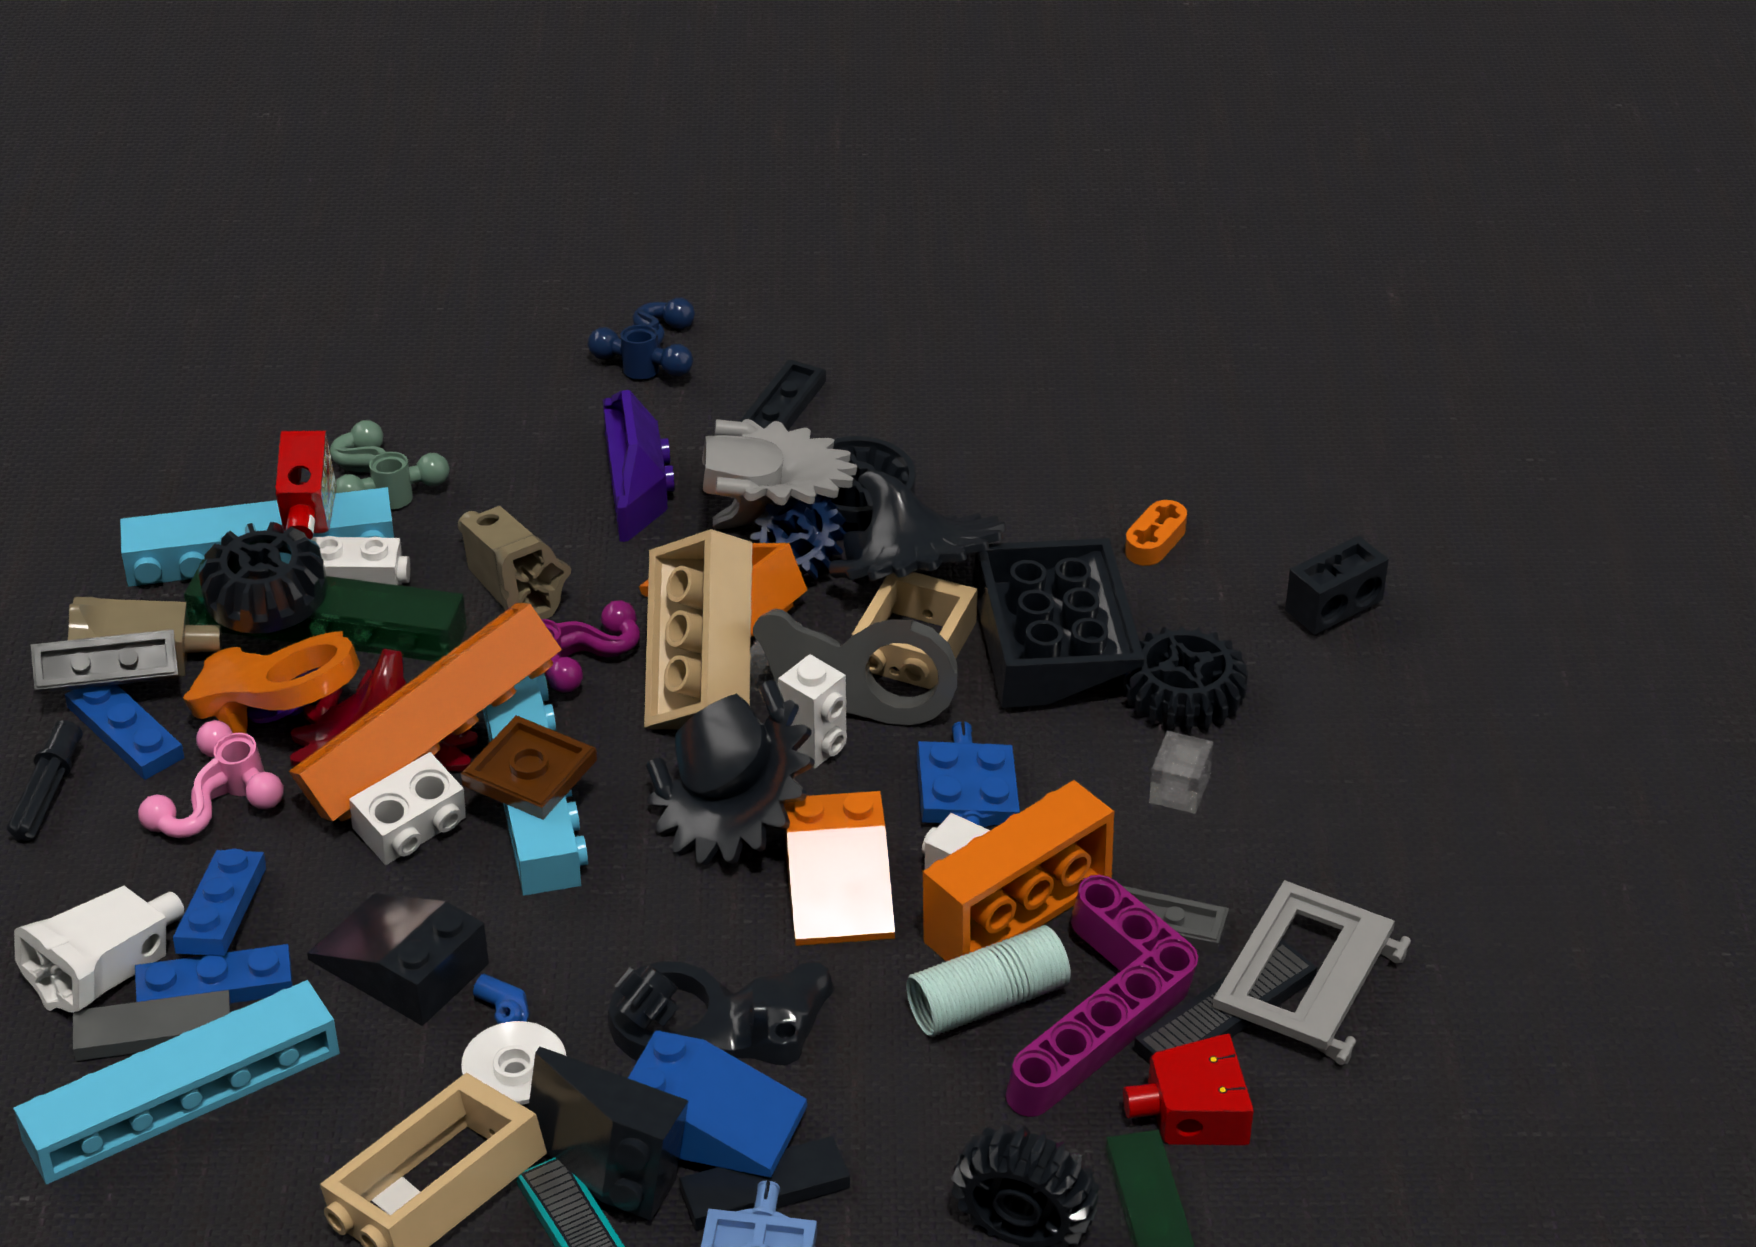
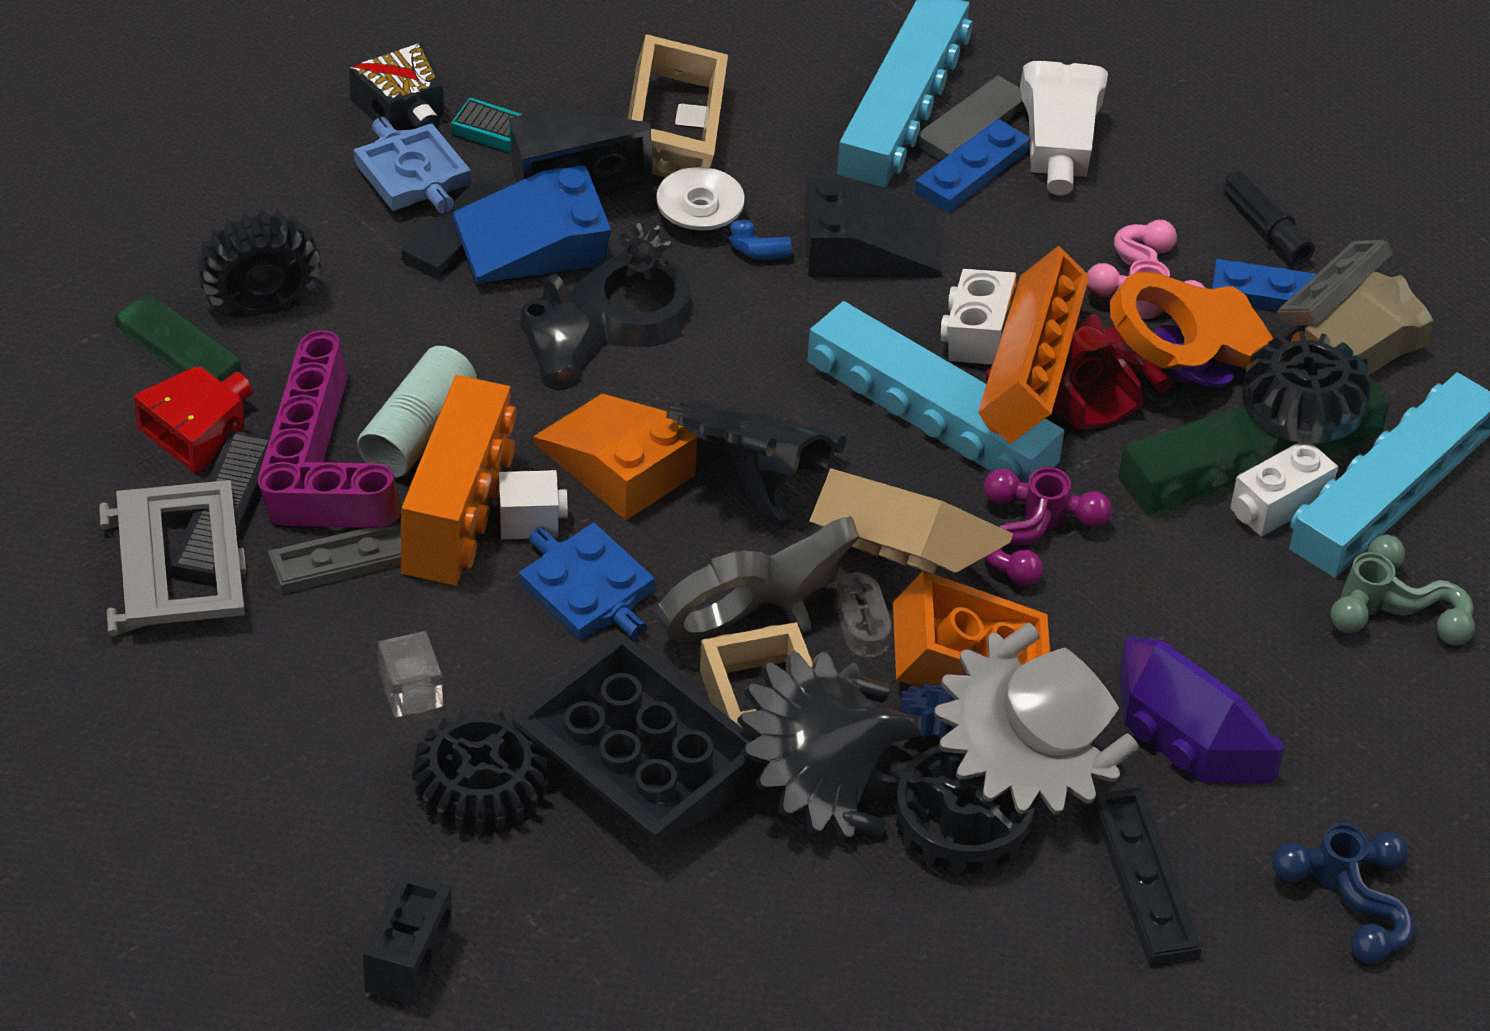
camera: 140 degrees right, 5 degrees up
(219, 903) = (1028, 196): blue plate -> none
(309, 503) = (1374, 459): red torso -> none
(512, 561) = (1168, 546): dark tan piece -> none
(529, 767) = (916, 361): reddish brown tile -> none
(822, 706) = (753, 518): white brick -> none
(1164, 536) = (637, 945): orange beam -> none

